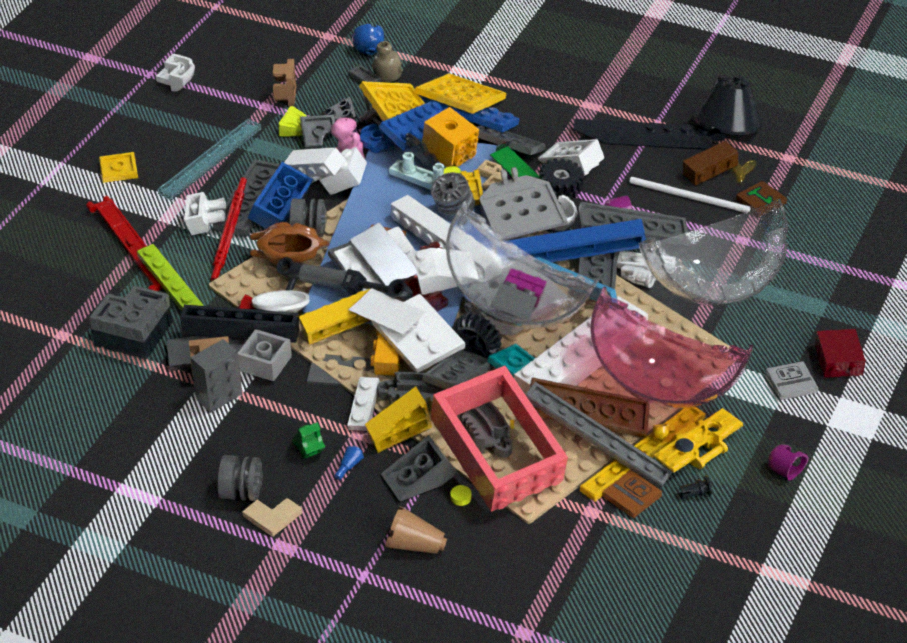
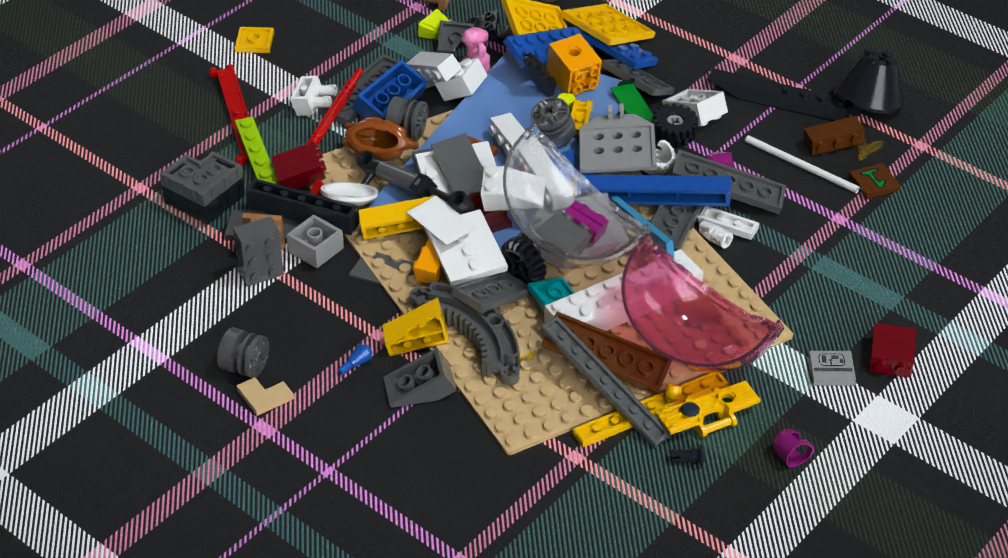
camera: 15 degrees right, 0 degrees up
(209, 159) = (342, 47): clear light blue tile -> none
(219, 284) = (299, 166): none -> dark red brick
(309, 440) = (324, 330): green brick -> none
(363, 403) = (392, 304): white plate -> none
(375, 138) = (499, 55): blue plate -> none
(408, 171) = (525, 92): light aqua plate -> none
(414, 534) = (387, 440): medium nougat cone -> none
(461, 495) = (452, 413): neon yellow tile -> none
(491, 171) = (601, 103): tan tile -> none
(519, 484) = (507, 412): coral door -> none
(632, 493) = (622, 447): dark orange tile -> none
(722, 259) = (799, 233): clear windscreen -> none

